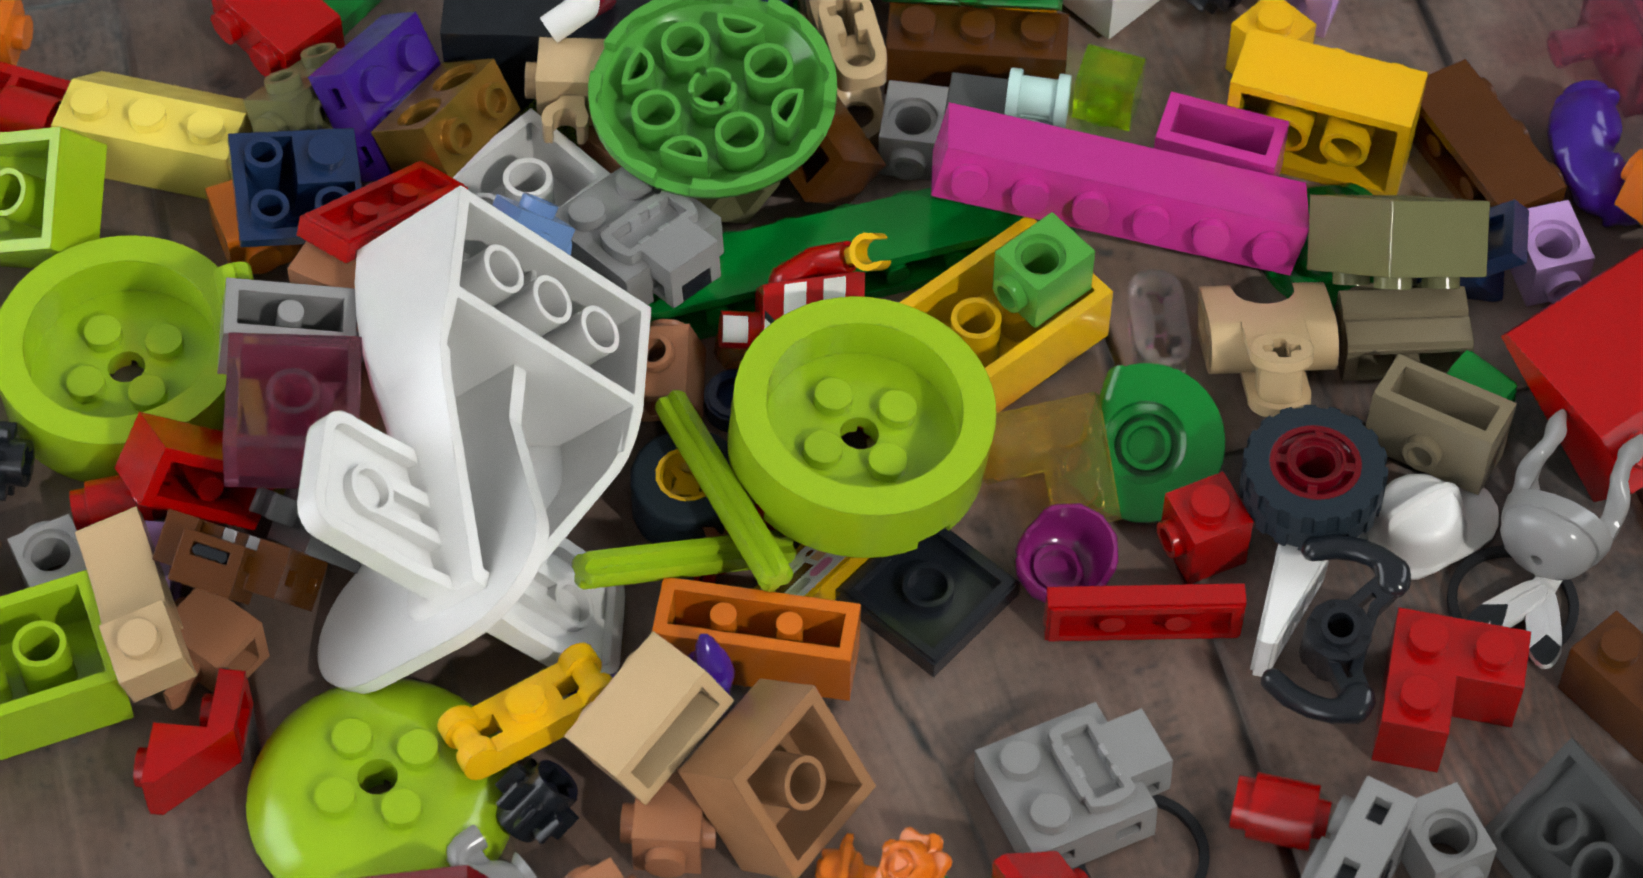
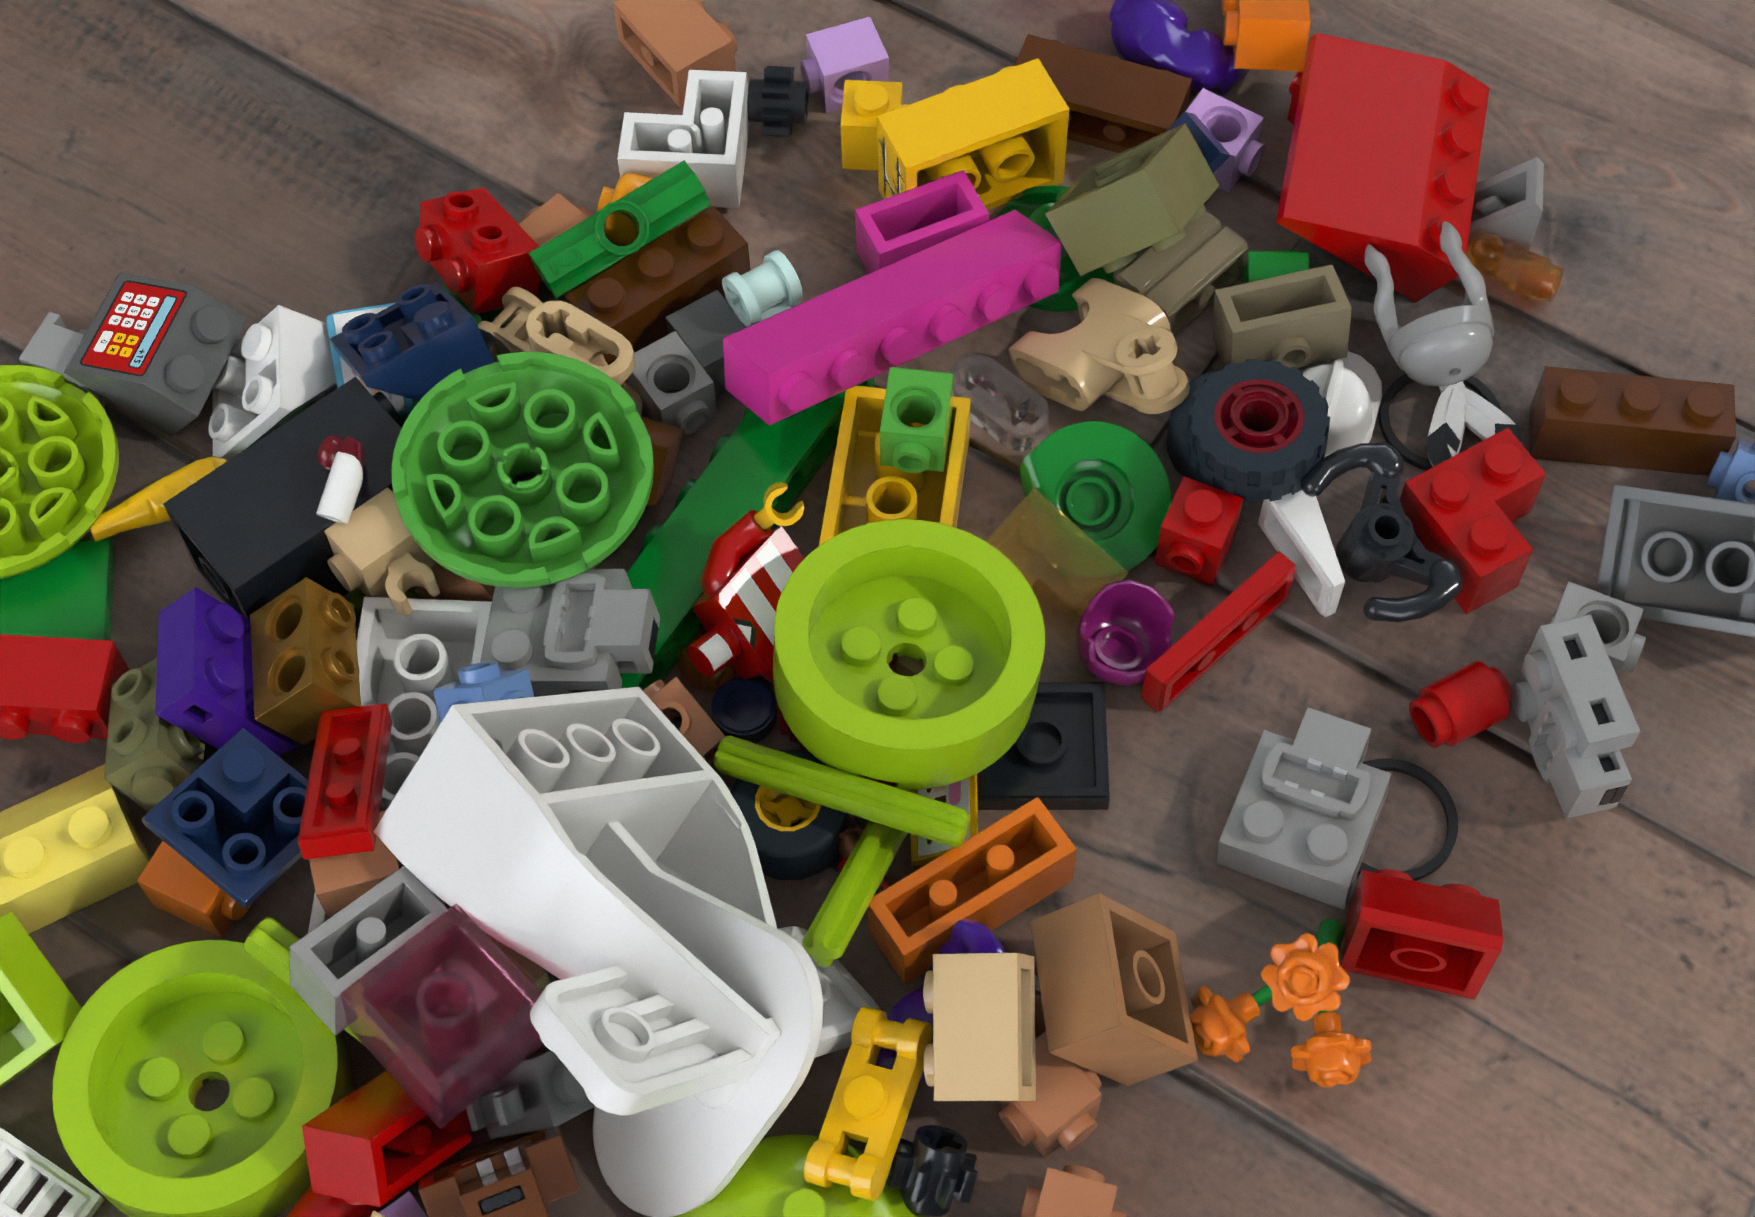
camera: 40 degrees left, 5 degrees up
(1108, 87) = (790, 232): clear neon green plate -> none

